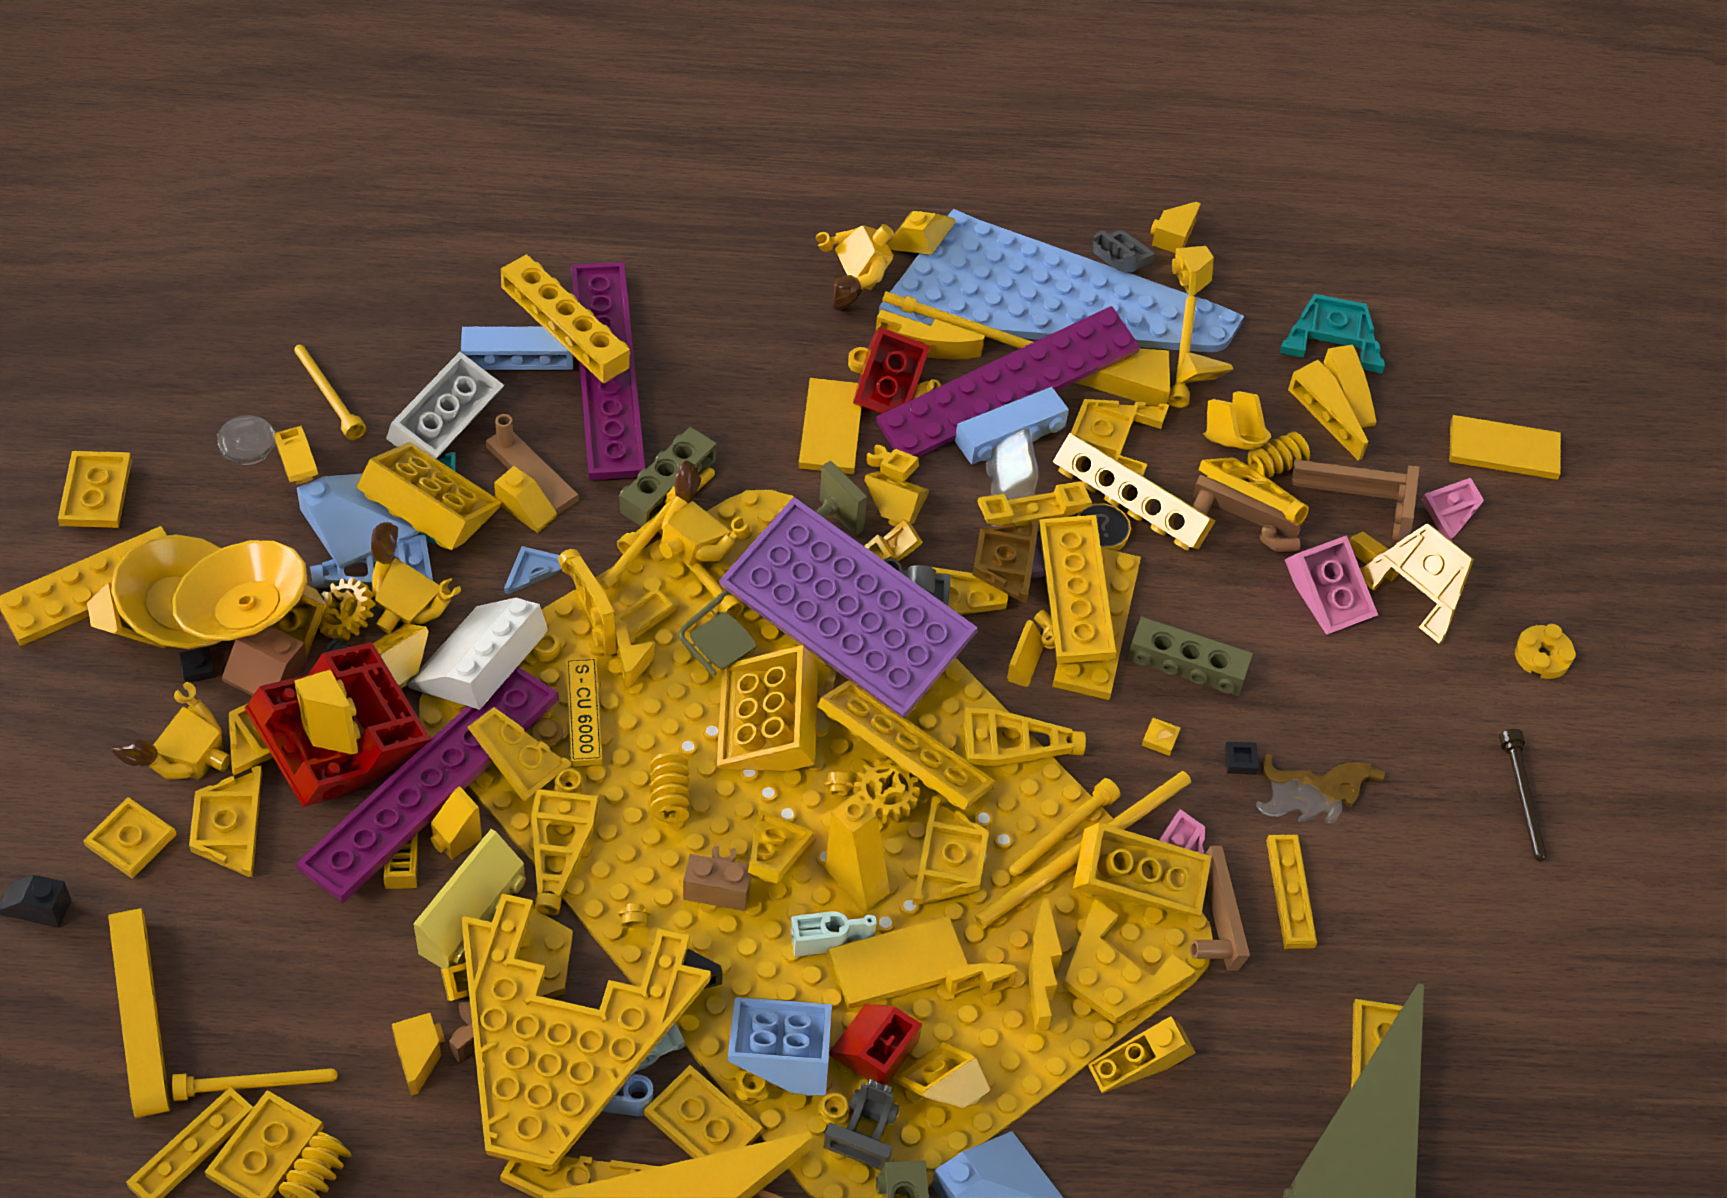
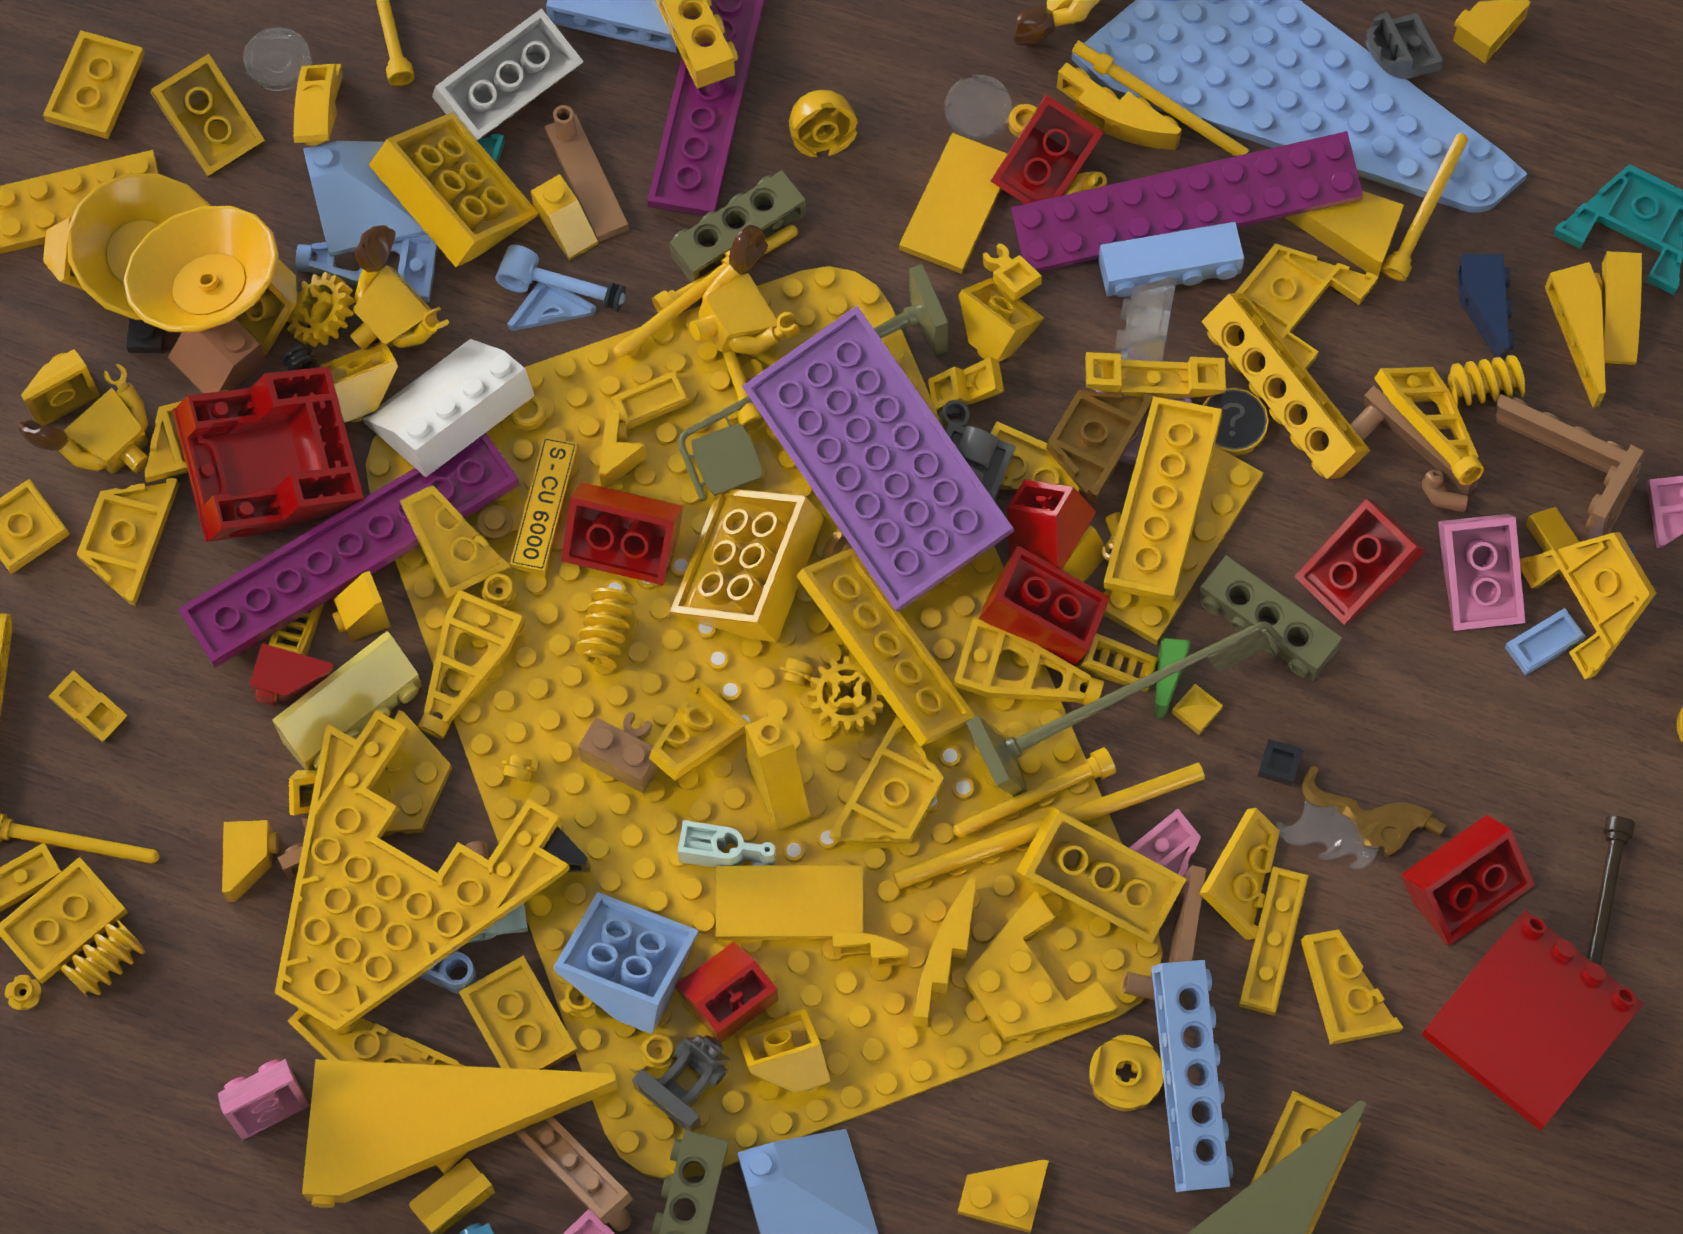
camera: 25 degrees right, 15 degrees up
(138, 715) = (59, 388): none -> yellow slope
(199, 489) = (207, 115): none -> yellow slope
(234, 968) = (87, 706): none -> yellow slope
(327, 712) = (253, 444): yellow slope -> none
(411, 885) = (285, 675): none -> red slope
(501, 545) = (521, 269): none -> light blue piece
(593, 599) = (590, 314): yellow plate -> none
(657, 715) = (621, 533): none -> red slope
(709, 389) = (822, 123): none -> yellow cylinder
(821, 357) = (978, 107): none -> clear tile
(1000, 624) = (1048, 520): none -> red slope
(1018, 685) = (1045, 606): none -> red slope
(1031, 798) = (1002, 753): none -> olive piece
(1066, 713) = (1120, 650): none -> yellow slope
(1128, 709) = (1169, 652): none -> bright green slope
(1142, 1055) = (1022, 1087): yellow slope -> none
(1162, 1147) = (1005, 1195): none -> yellow wing
(1193, 268) = (1486, 92): yellow slope -> none
(1201, 368) = (1436, 235): yellow slope -> none
(1216, 1038) = (1109, 1087): none -> yellow plate
(1237, 423) = (1456, 333): yellow piece -> none
(1240, 599) = (1359, 561): none -> red slope
(1246, 845) = (1240, 872): none -> yellow wing
(1250, 382) = (1483, 296): none -> dark blue slope
(1278, 1021) = (1180, 1093): none -> light blue brick
(1367, 919) = (1343, 991): none -> yellow wing
(1397, 625) = (1545, 641): none -> light blue tile
(1419, 804) = (1468, 879): none -> red slope
(1518, 890) = (1532, 1019): none -> red slope

